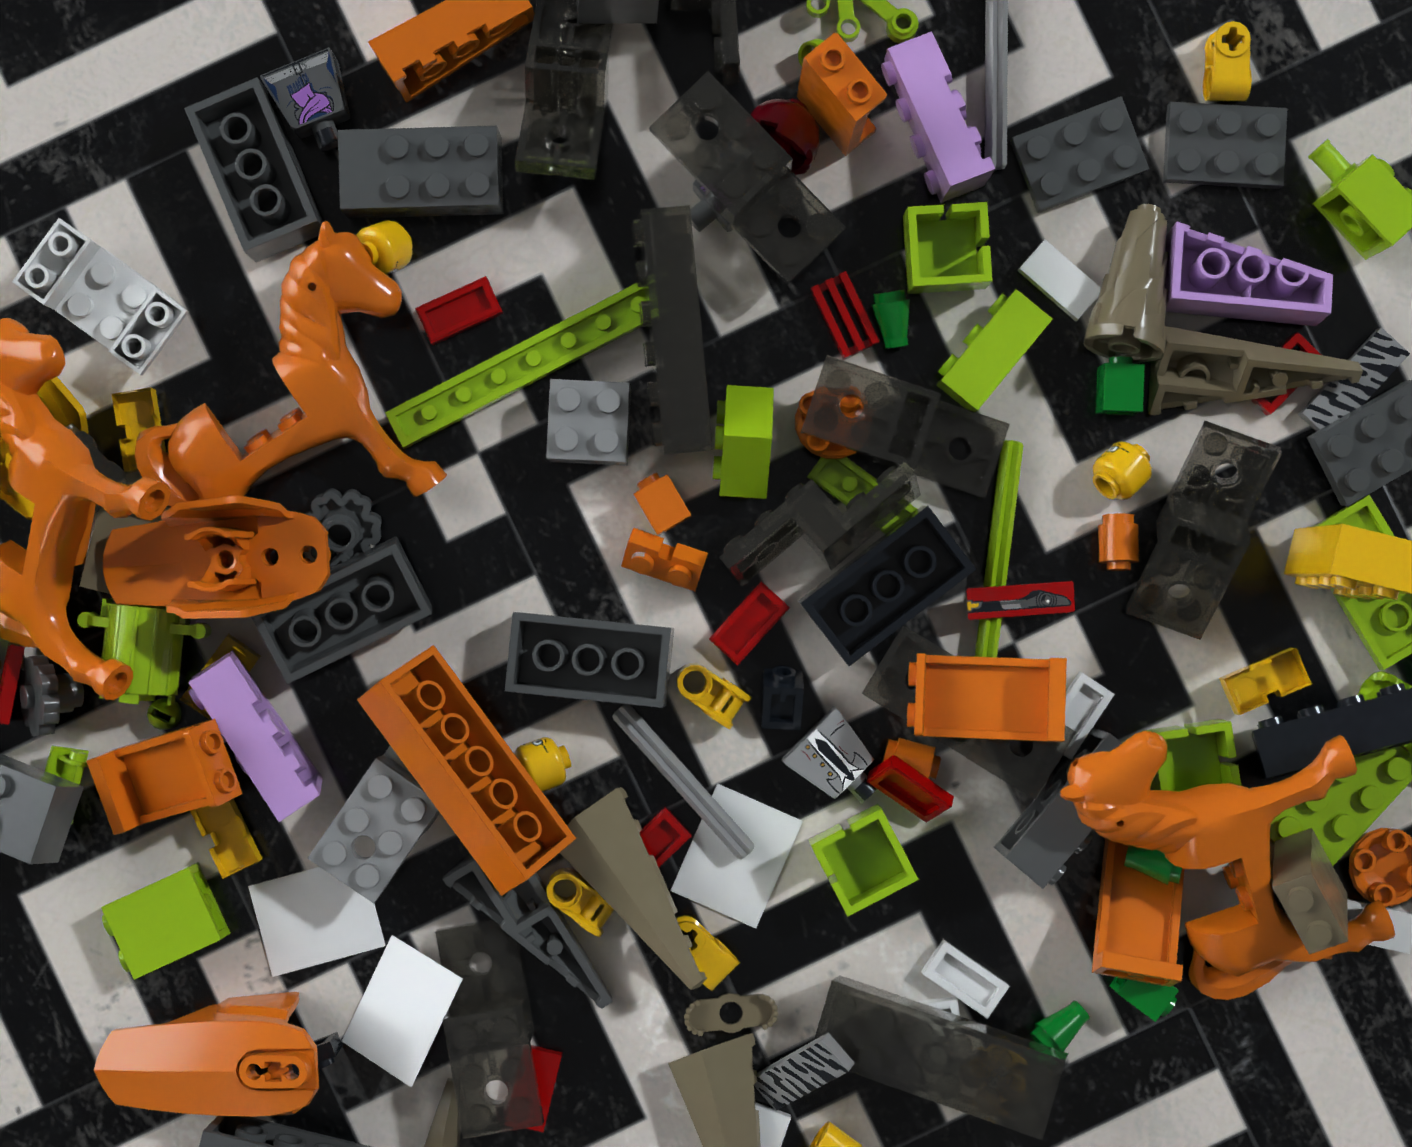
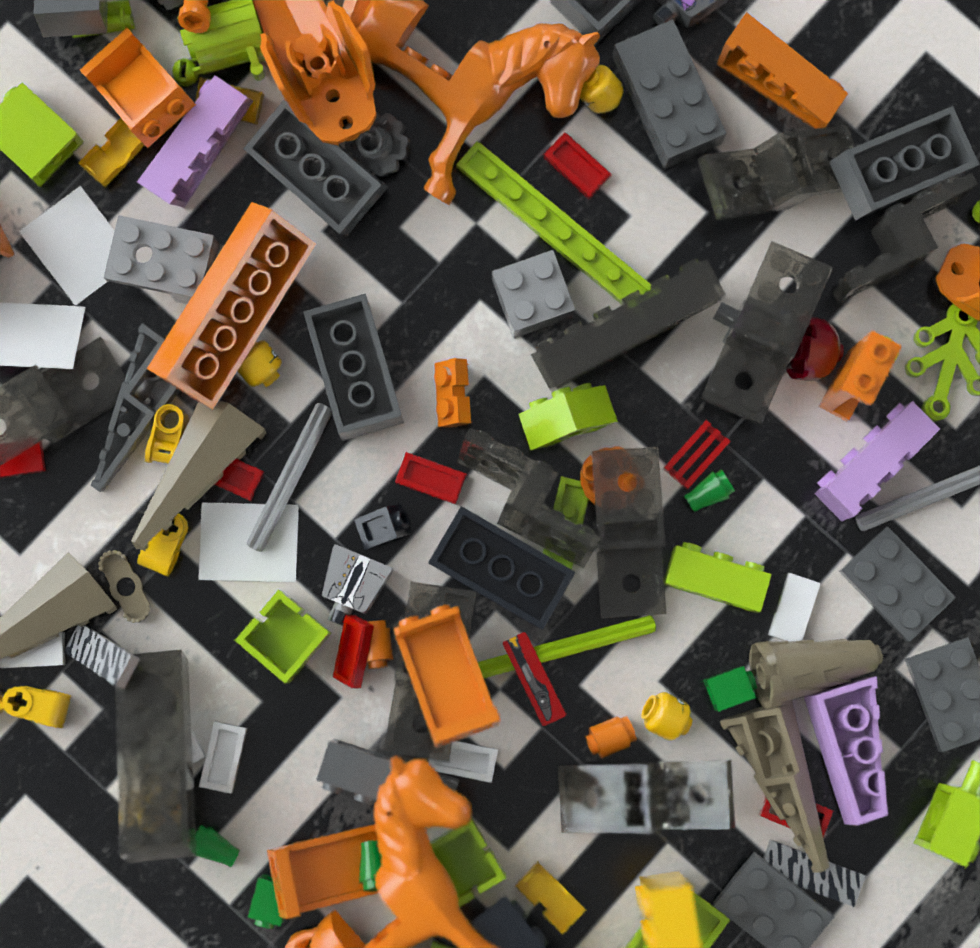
camera: 70 degrees right, 5 degrees down
(661, 503) = (494, 373): orange brick -> none
(713, 695) = (364, 472): yellow piece -> none
(943, 252) = (776, 509): lime piece -> none

